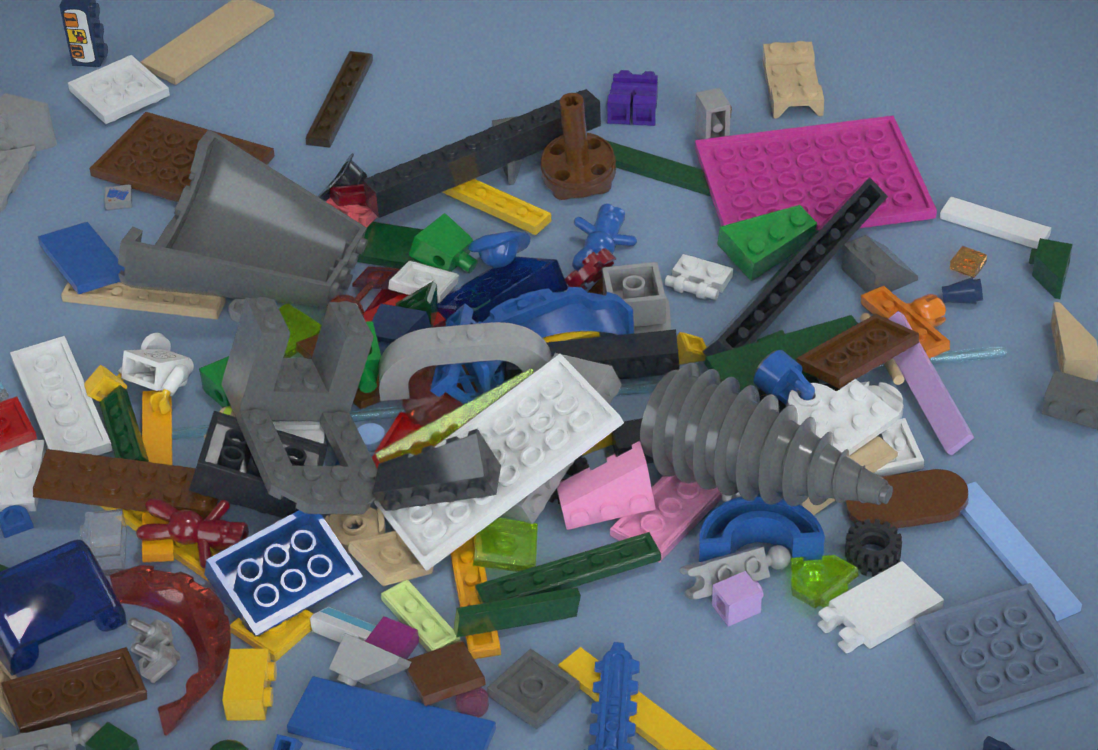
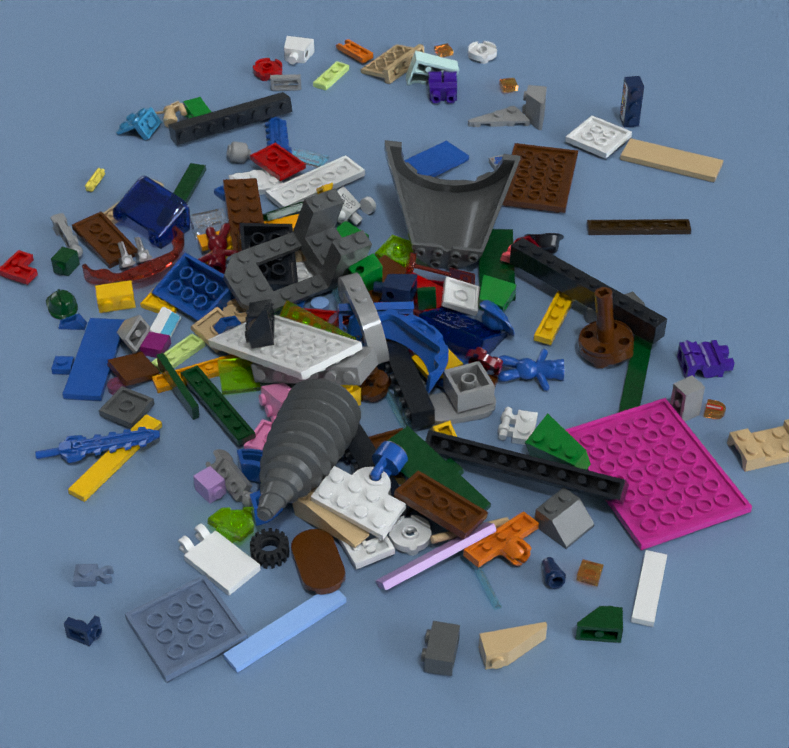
camera: 75 degrees right, 0 degrees up
(393, 539) = (226, 323): none -> blue piece

